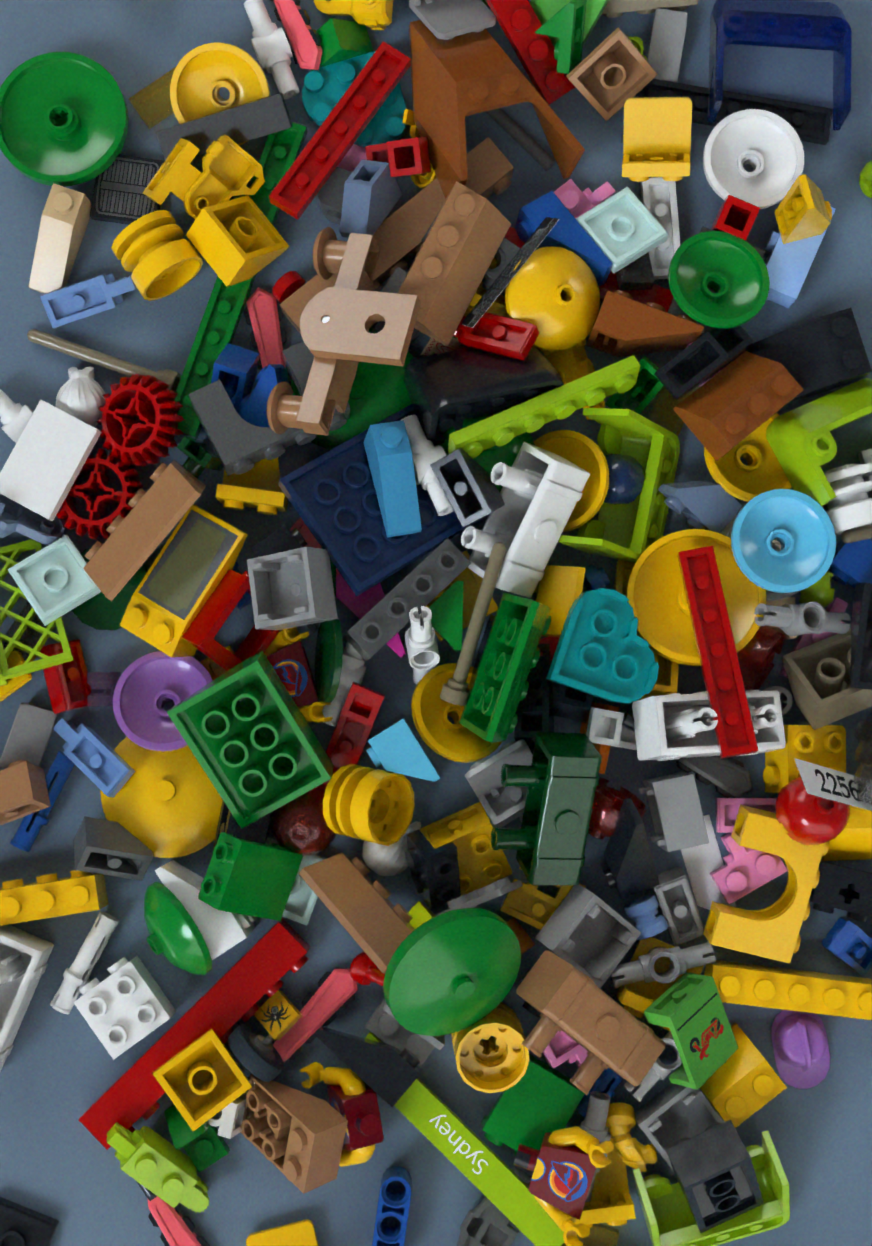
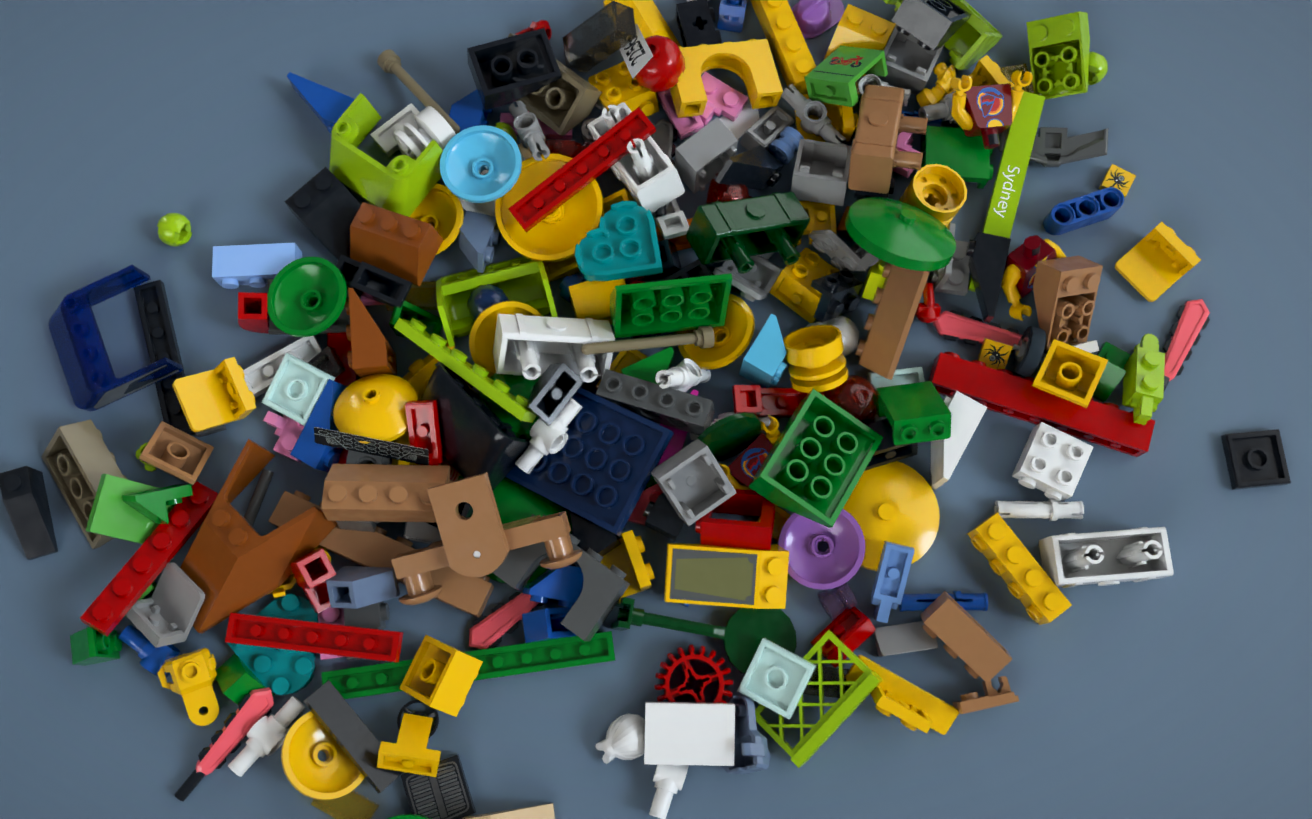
camera: 120 degrees left, 10 degrees down
(85, 298) = (543, 778): medium blue hinge -> none
(98, 358) = (580, 680): dark tan piece -> none
(110, 850) = (950, 531): dark grey slope -> none
(143, 528) = (704, 622): medium nougat slope -> none
(152, 403) = (642, 677): red gear -> none
(157, 255) = (482, 734): yellow wheel -> none
(174, 931) = (980, 447): green dish -> none
(224, 175) = (392, 713): yellow piece -> none
(287, 285) = (458, 621): red tile -> none
(393, 477) = (570, 452): dark azure slope -> none
(667, 43) = (131, 430): light grey slope -> none
(757, 140) = (185, 314): white dish -> none
(803, 211) = (230, 261): yellow slope -> none

